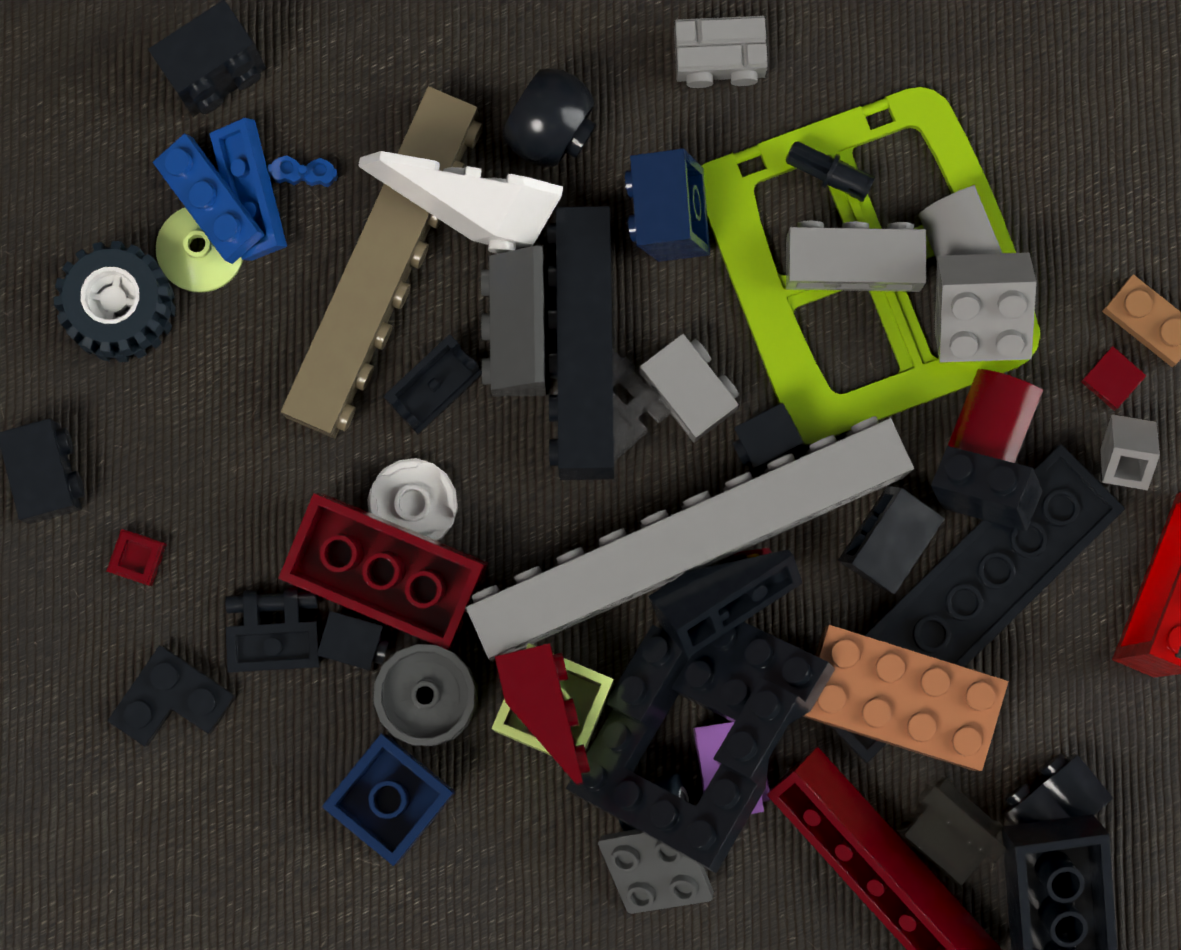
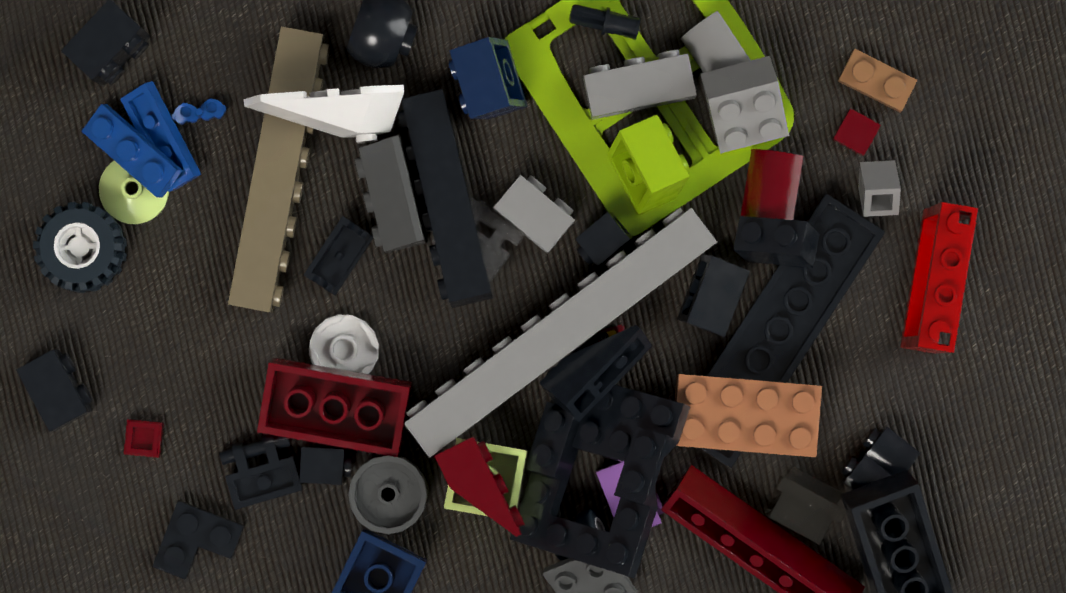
camera: 15 degrees left, 5 degrees up
(847, 354) = (648, 164): none -> lime brick

